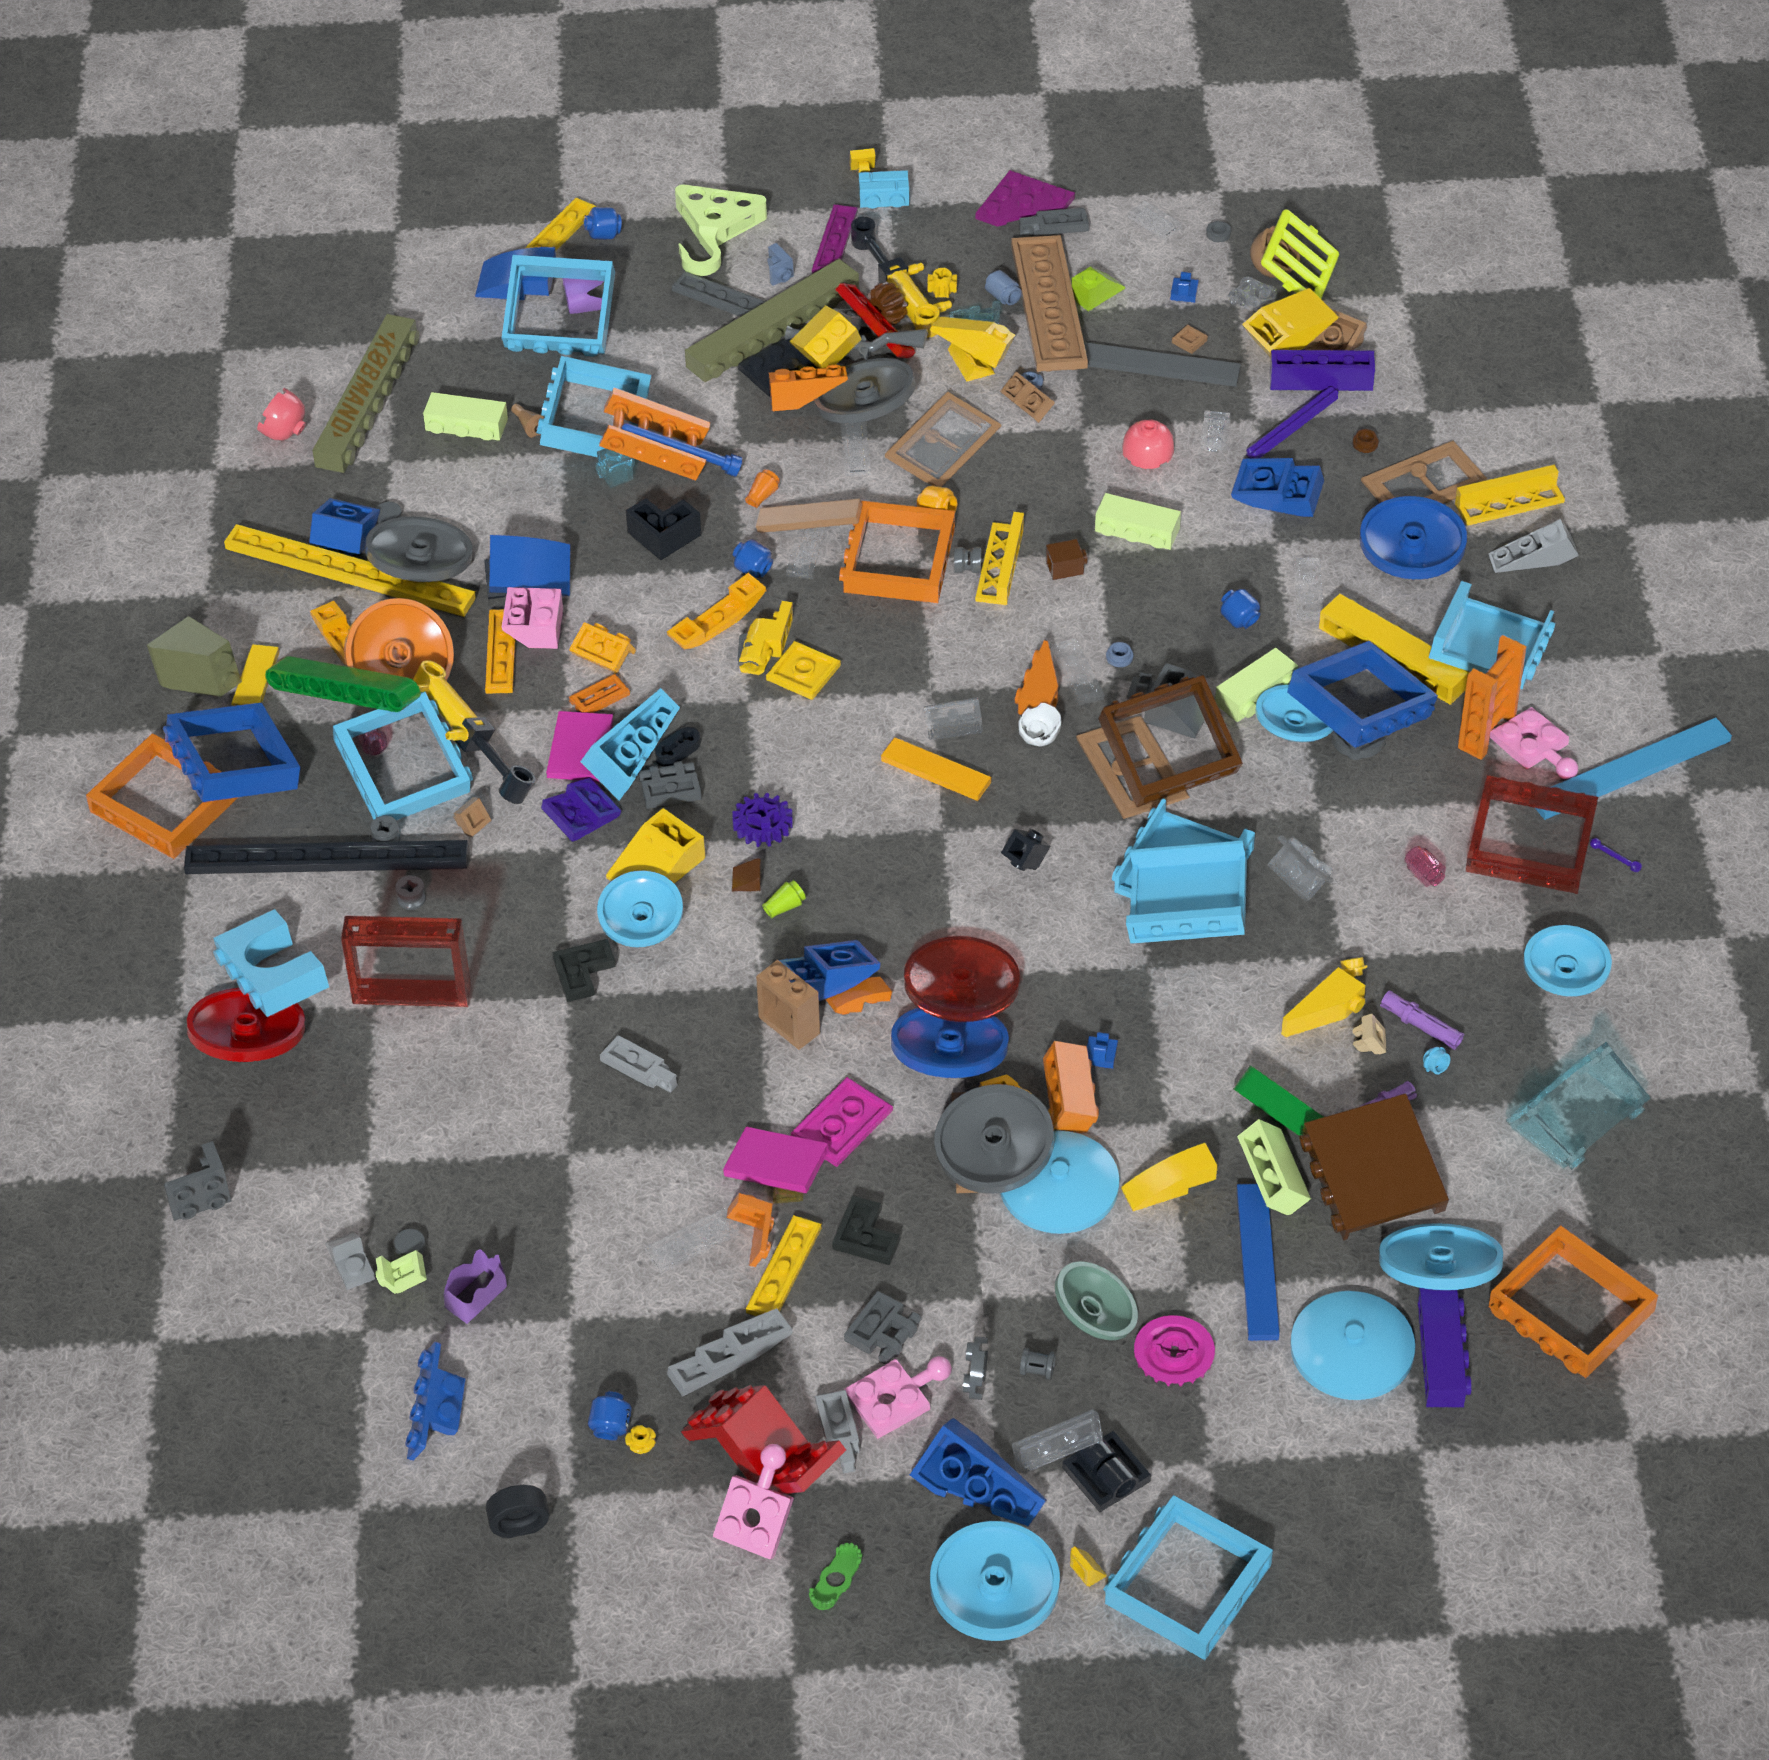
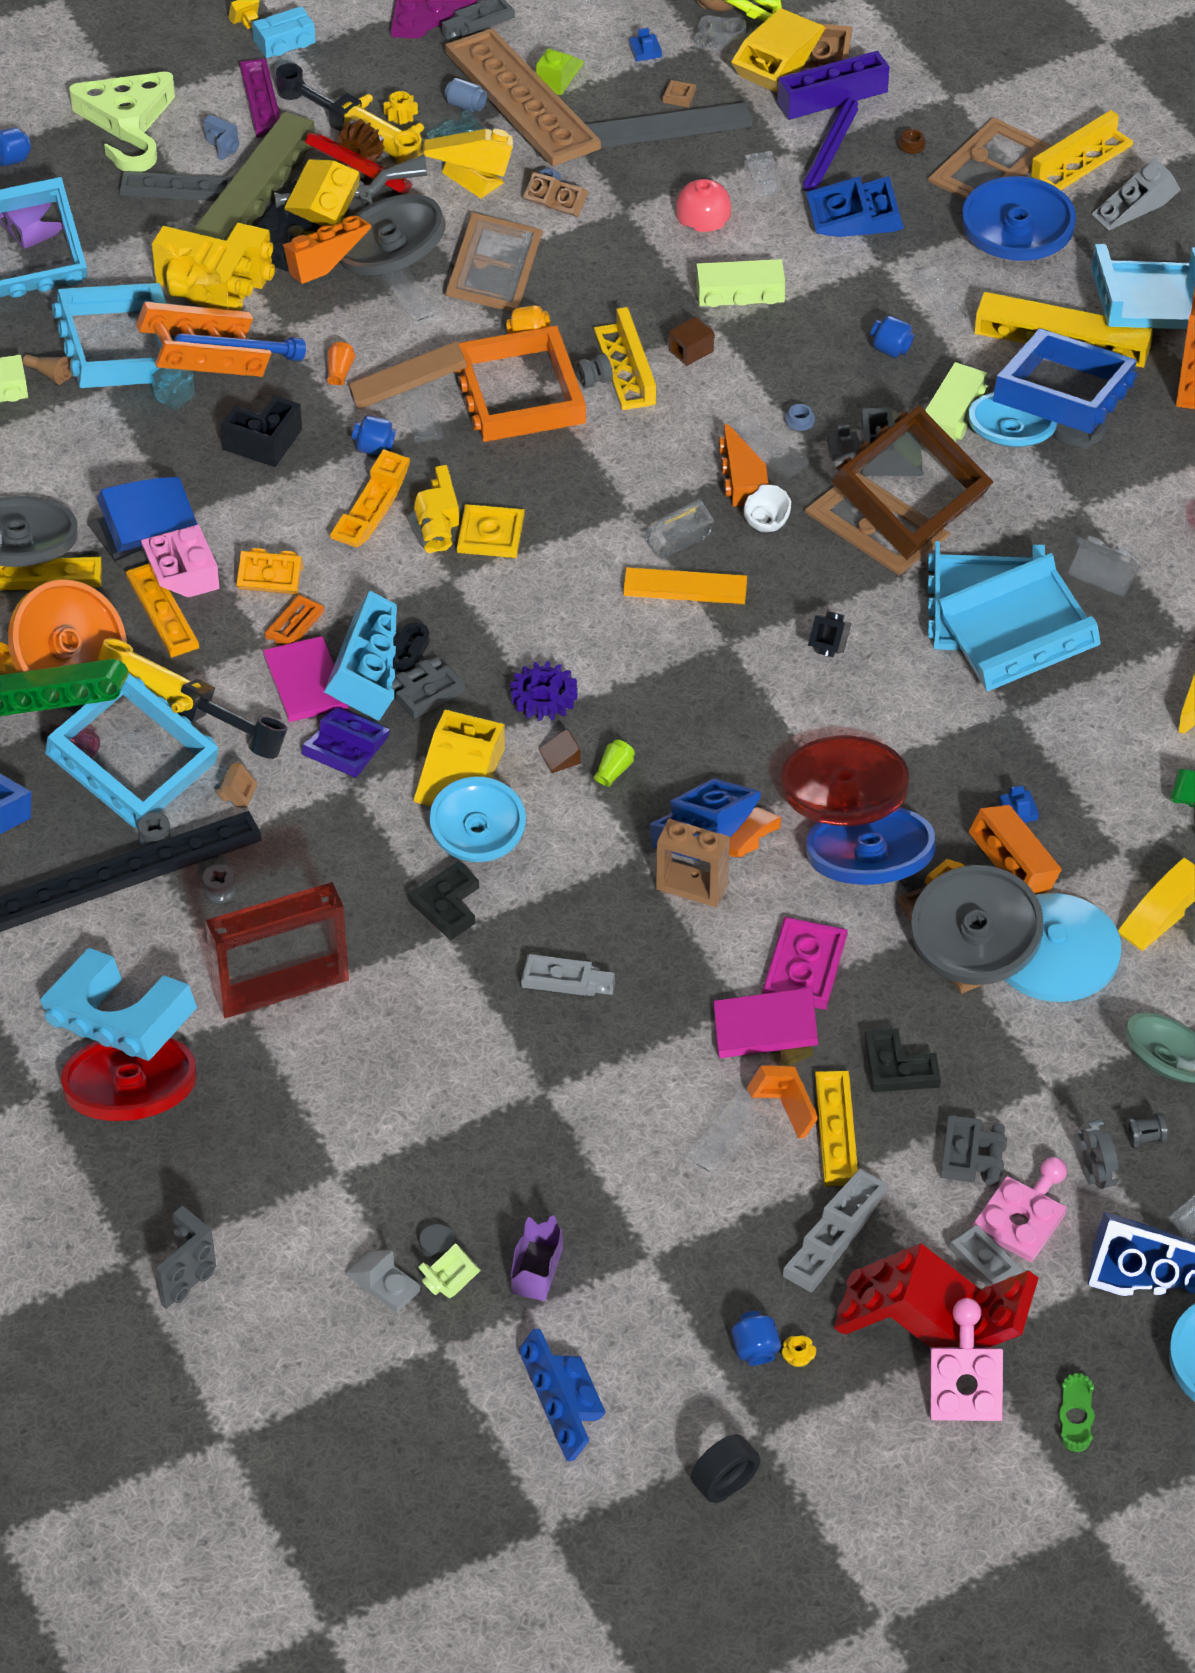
camera: 25 degrees left, 0 degrees up
(700, 379) = (211, 269): none -> yellow brick

